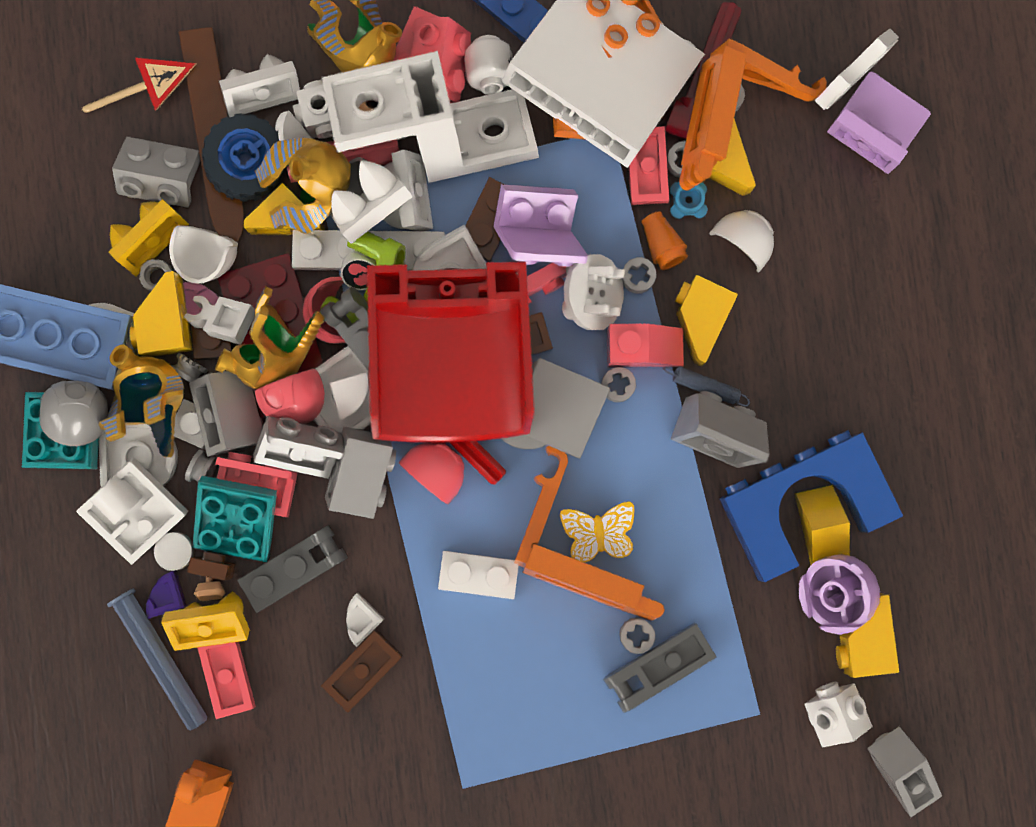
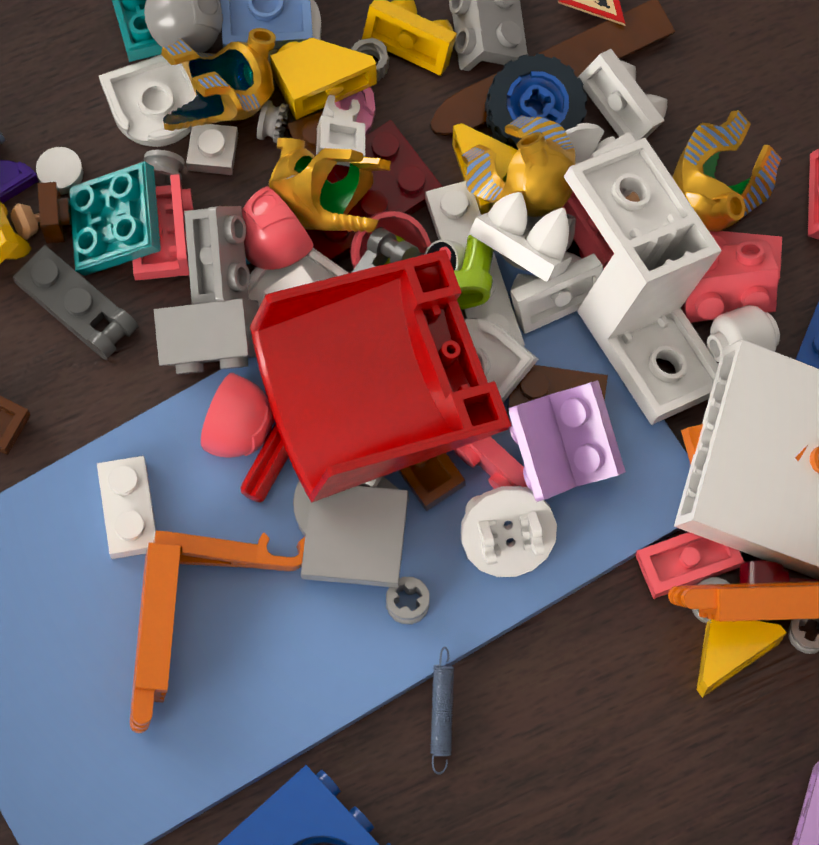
camera: 70 degrees right, 15 degrees down
(132, 511) = (92, 108): white plate -> none
(201, 253) = (409, 92): white helmet -> none
(226, 413) = (232, 169): light grey brick -> none
(361, 619) = (39, 395): white tile -> none
(599, 533) = (217, 627): animal -> none
(629, 626) = (119, 721): light grey bush -> none
(635, 264) = (563, 579): light grey bush -> none
(644, 346) = (464, 614): coral slope -> none
(661, 667) = (76, 754): dark grey plate -> none
(663, 241) = (601, 606): orange cone -> none
(682, 208) = (659, 634): dark azure plate -> none
(702, 315) = (526, 679): yellow slope -> none
(722, 431) = (391, 736): light grey slope -> none
(749, 233) = (644, 705): white helmet -> none

